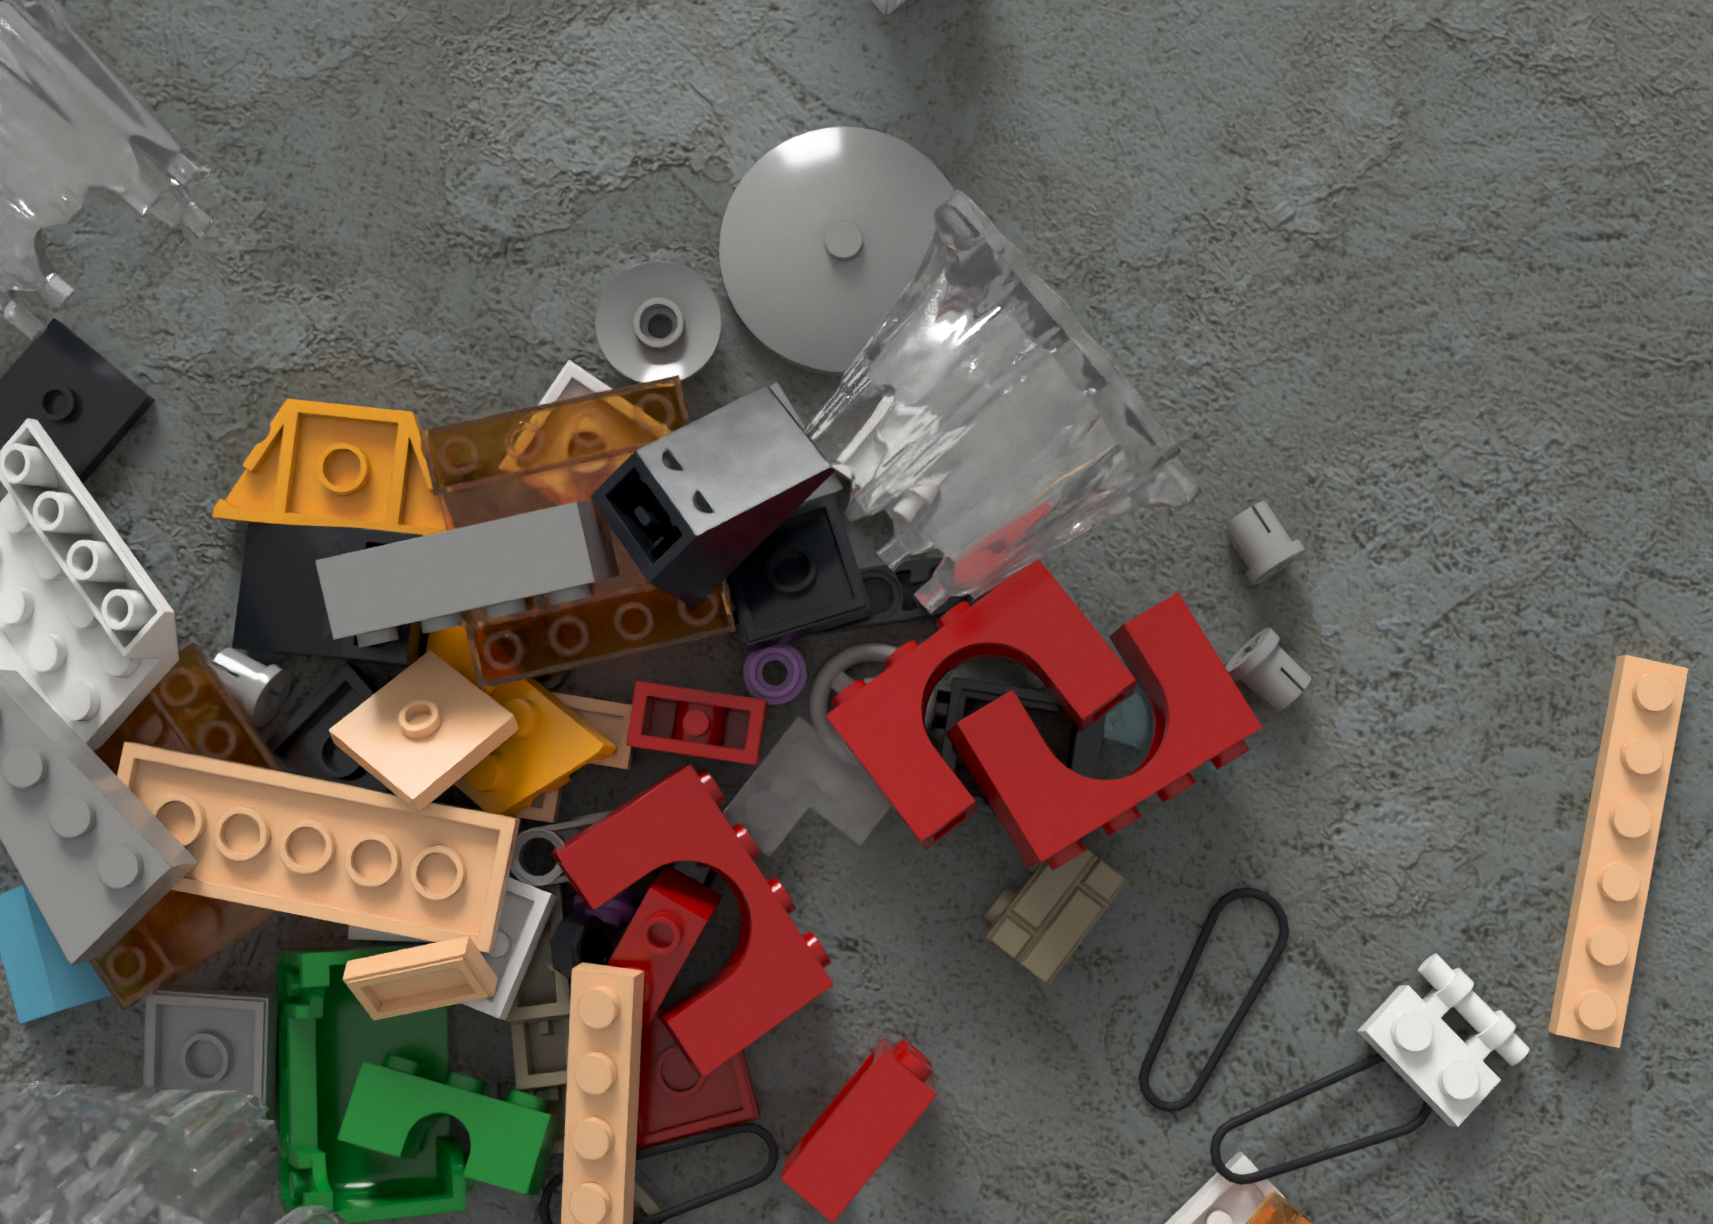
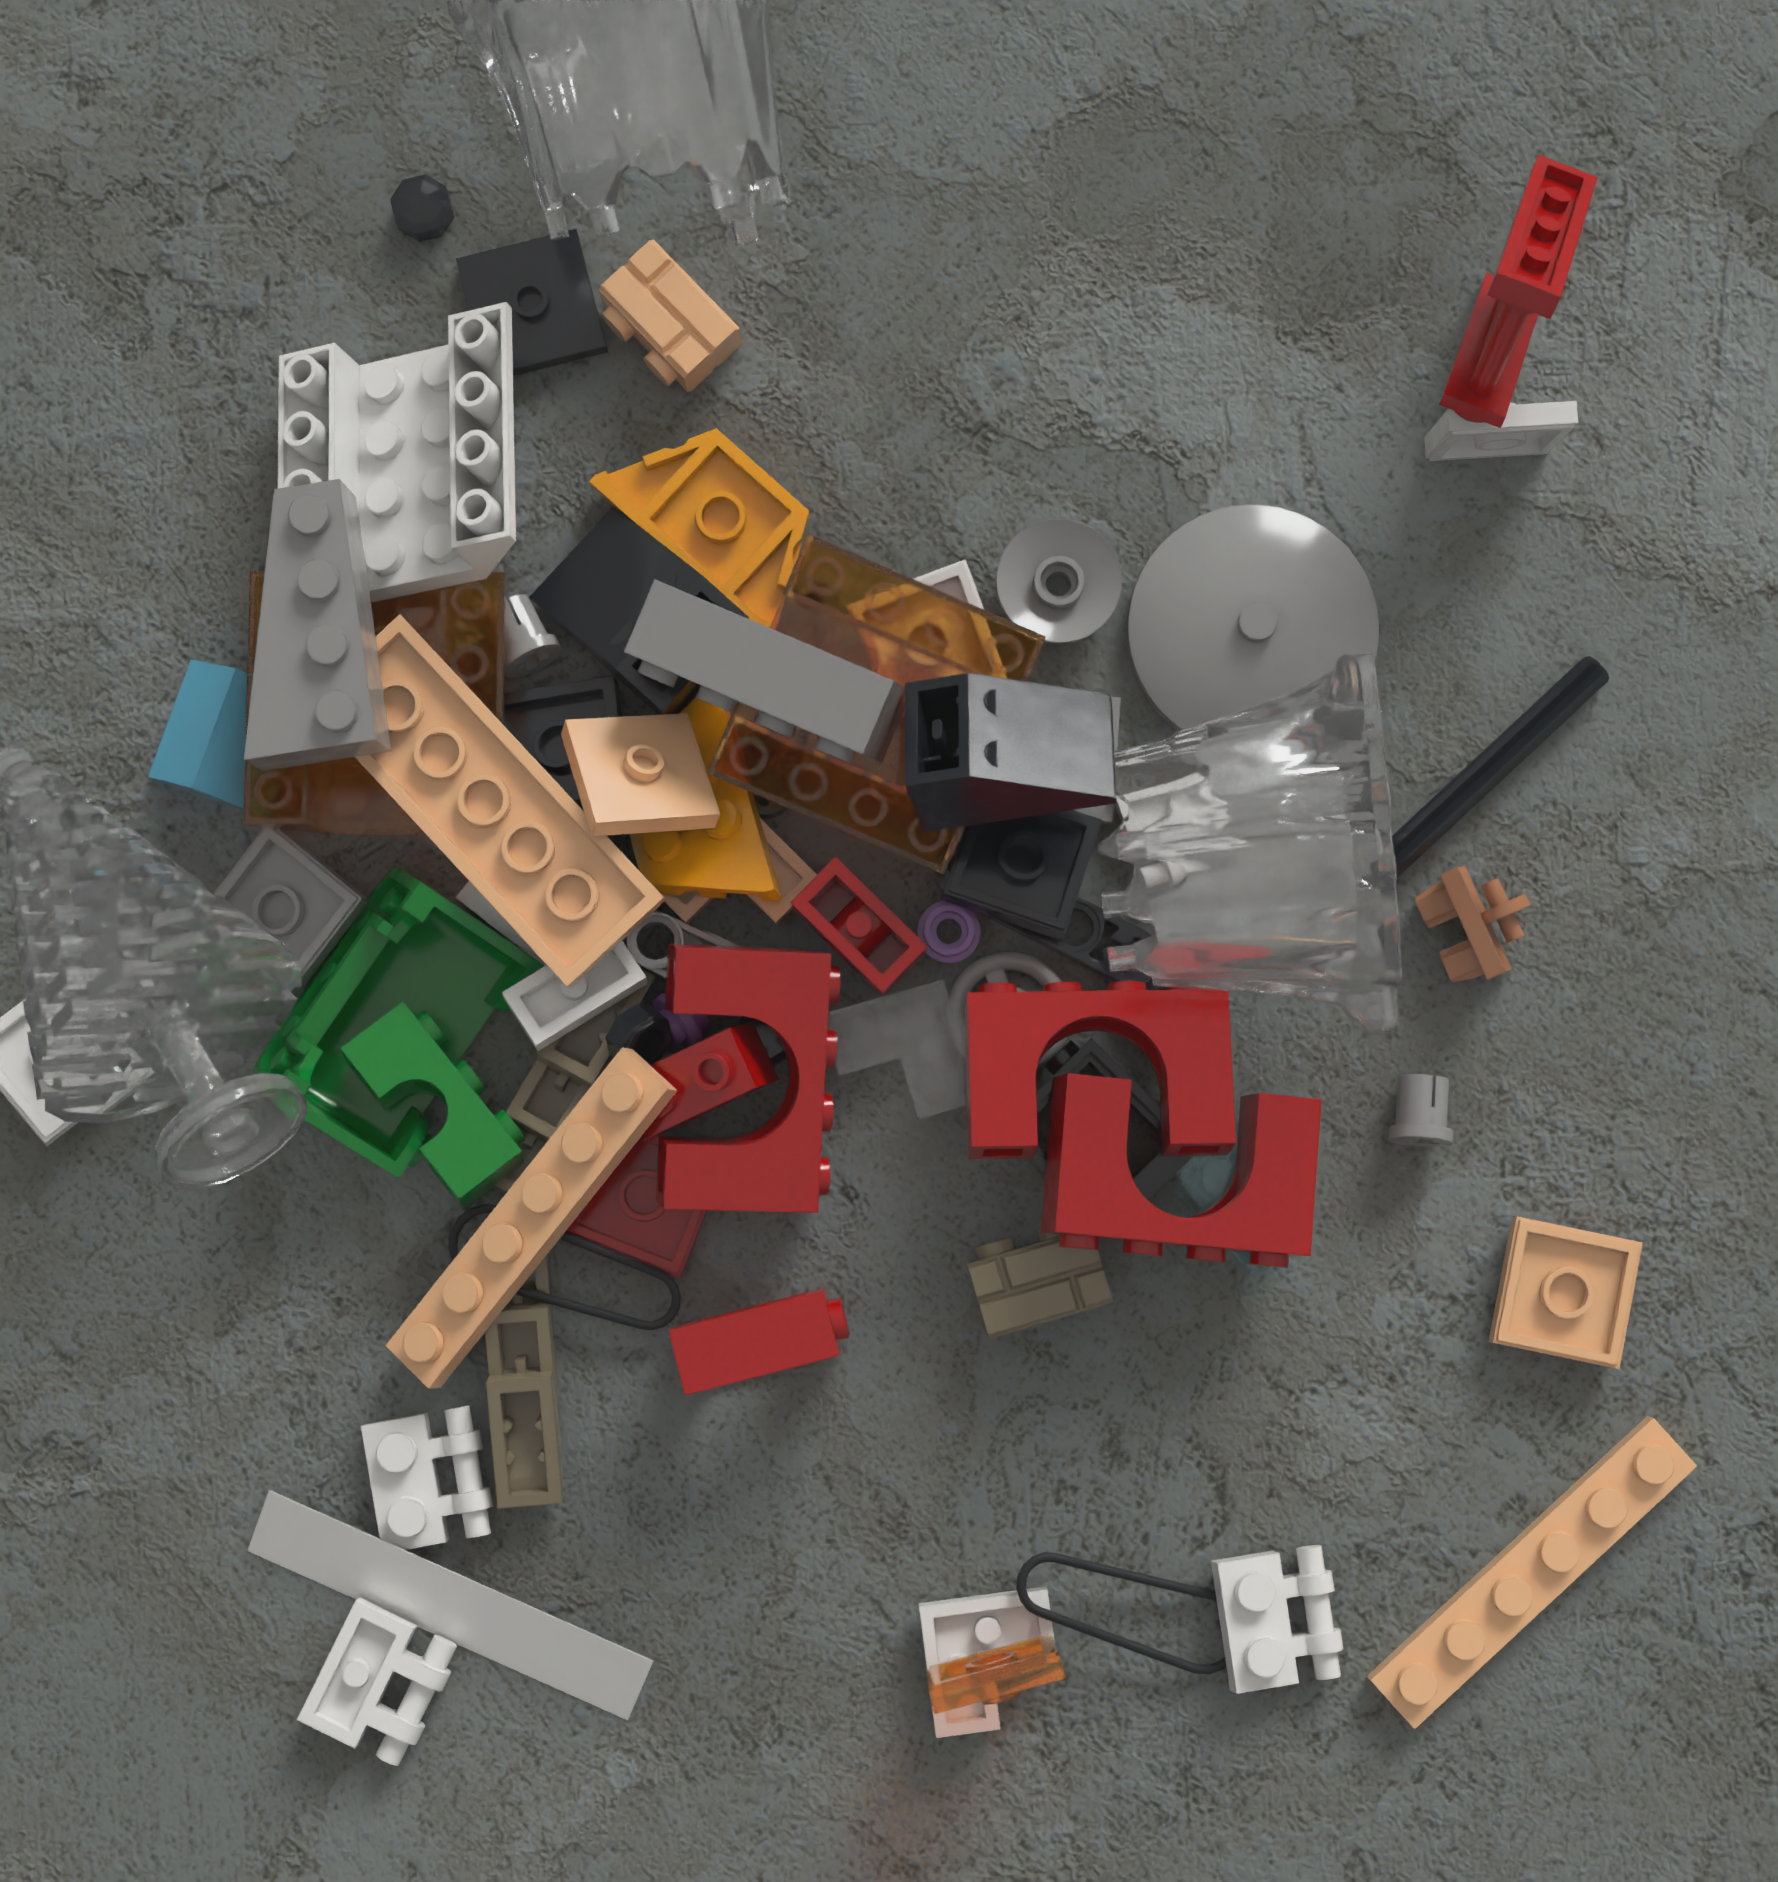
camera: 30 degrees right, 0 degrees up
(182, 335) = (668, 317): none -> light nougat brick
(420, 978) = (498, 968): light nougat tile -> none
(1118, 210) = (1497, 761): none -> black axle
(1216, 377) = (1459, 897): none -> nougat hips
(1238, 1017) = (1125, 1479): black piece -> none
(1268, 670) = (1350, 1219): light grey bush -> none
(1482, 605) = (1565, 1292): none -> light nougat plate

